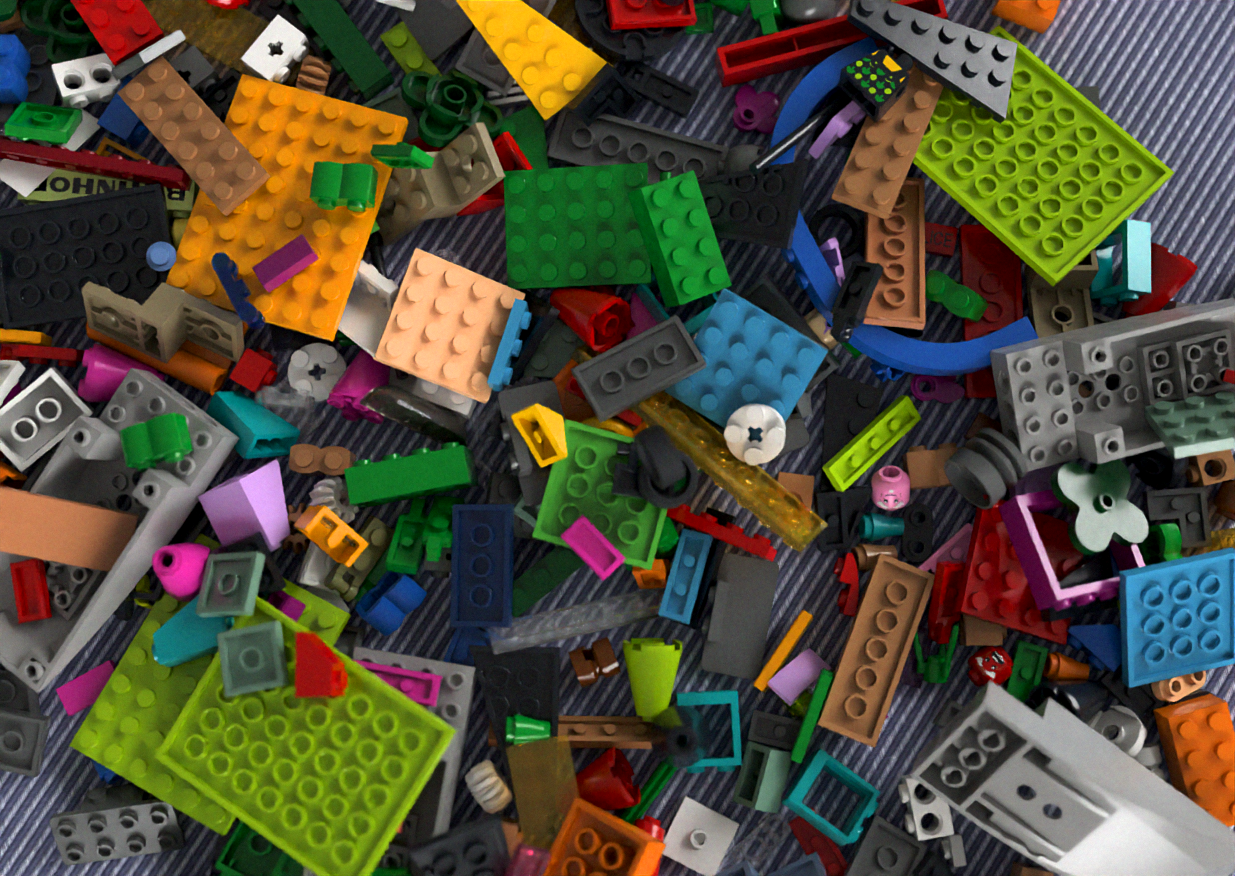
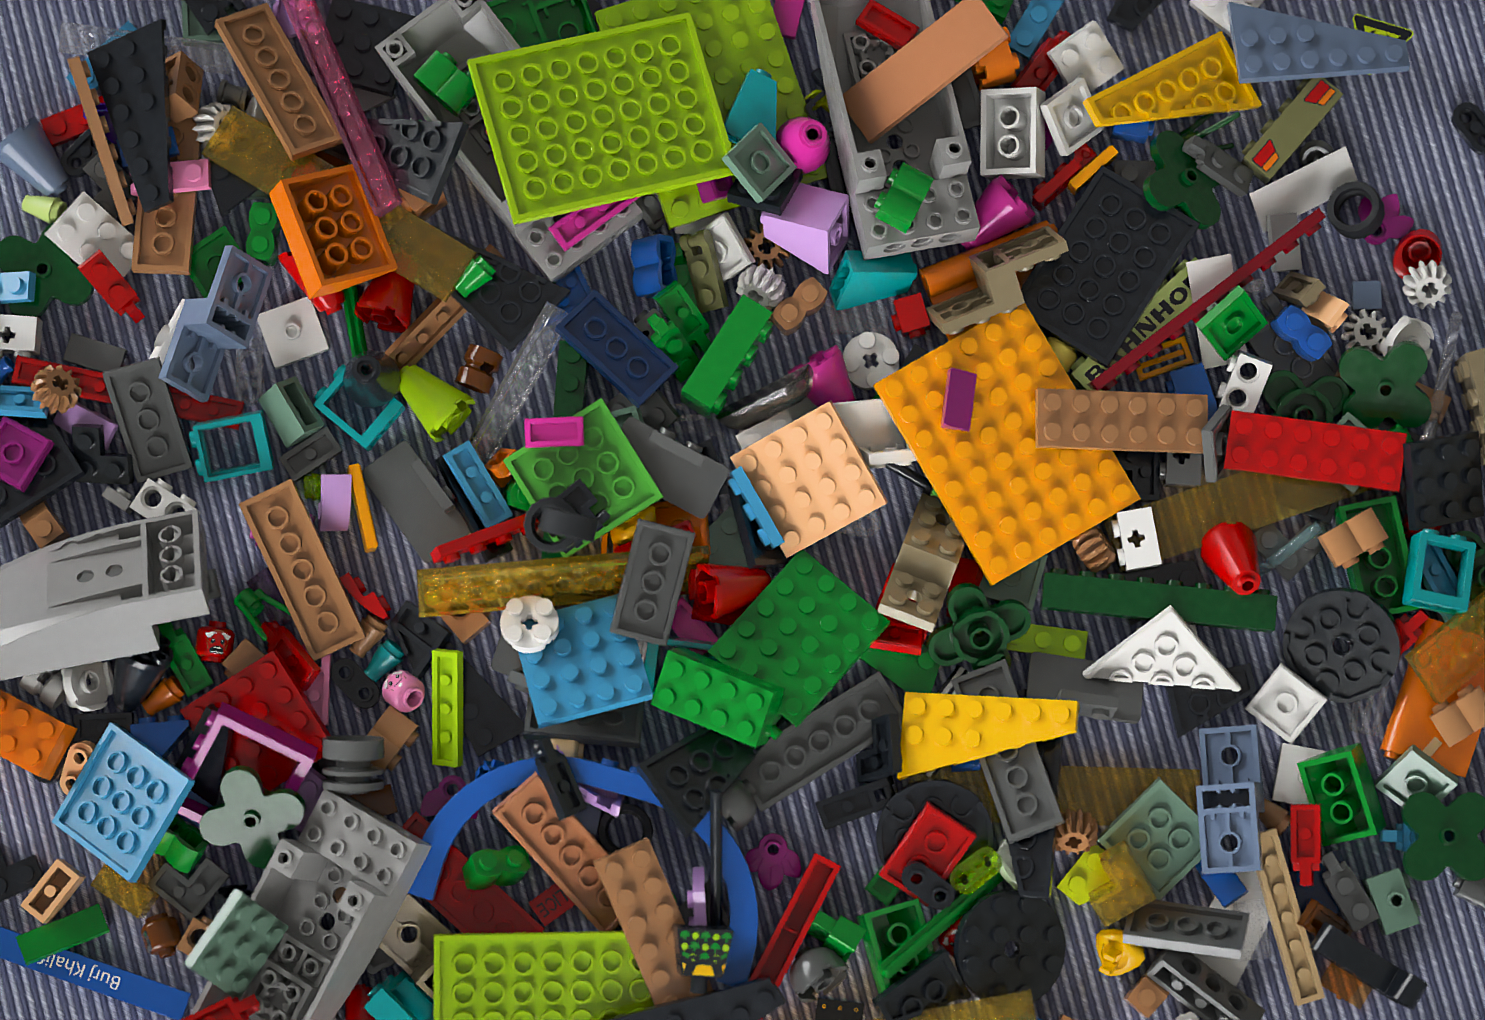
camera: 135 degrees right, 0 degrees up
(161, 256) = (1049, 319): medium blue plate -> none
(237, 290) = (966, 347): clear blue plate -> none
(253, 658) = (690, 133): sand green plate -> none
(272, 397) = (859, 326): clear plate -> none
(317, 668) = (641, 170): red slope -> none
(331, 534) = (733, 262): light orange window -> none
(344, 185) = (975, 490): green brick -> none
(402, 156) = (959, 550): green plate -> none
(489, 786) = (461, 219): white gear -> none
(542, 432) = (665, 469): yellow slope -> none
(811, 715) = (300, 481): green tile -> none

